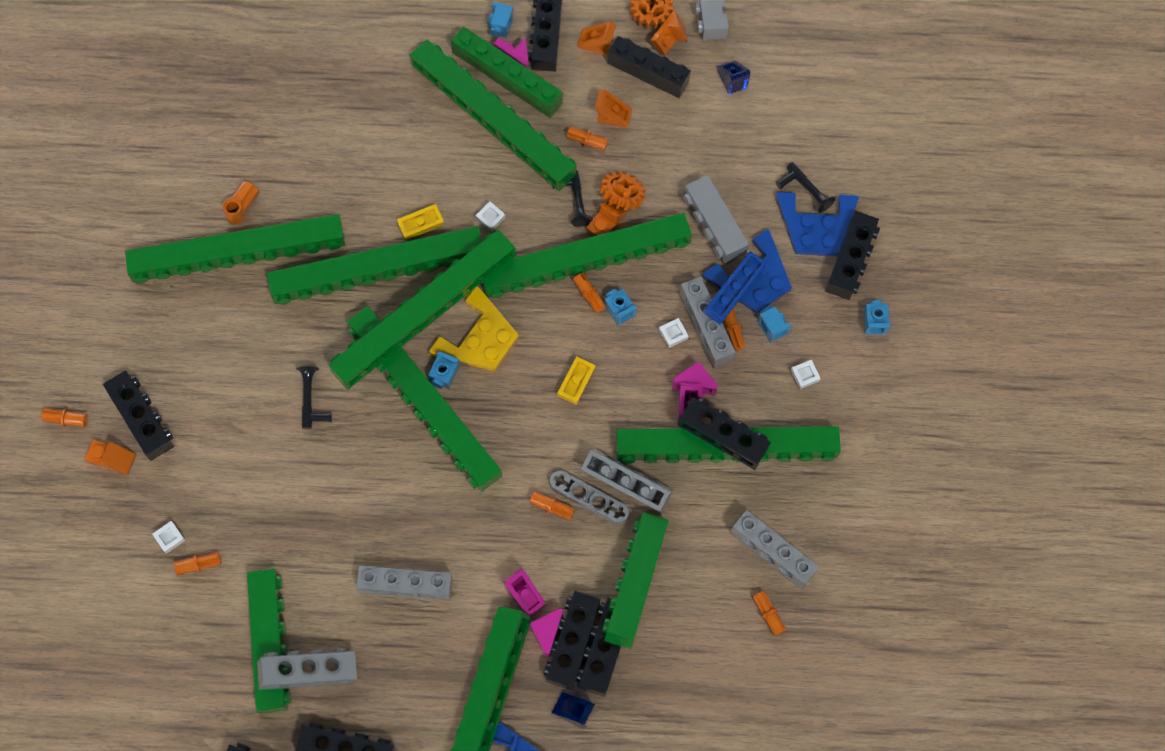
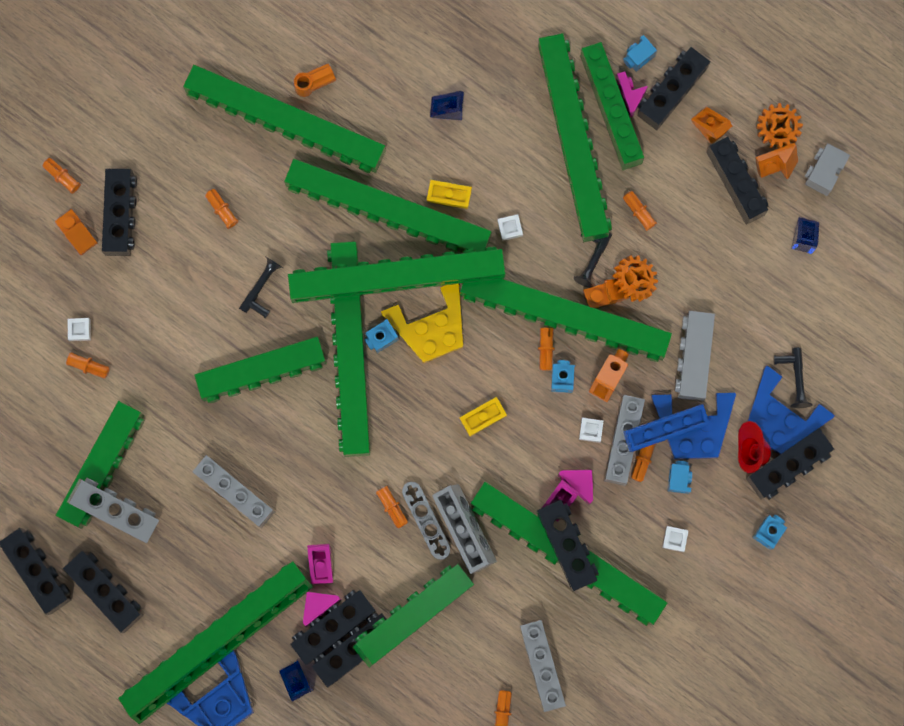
camera: 40 degrees right, 10 degrees up
(230, 355) = (221, 208): none -> orange axle
(357, 465) = (260, 369): none -> green brick
(371, 153) = (448, 106): none -> clear blue slope
(612, 110) = (678, 199): orange slope -> none
(659, 275) = (609, 375): none -> orange torso
(813, 259) = (752, 447): none -> red piece

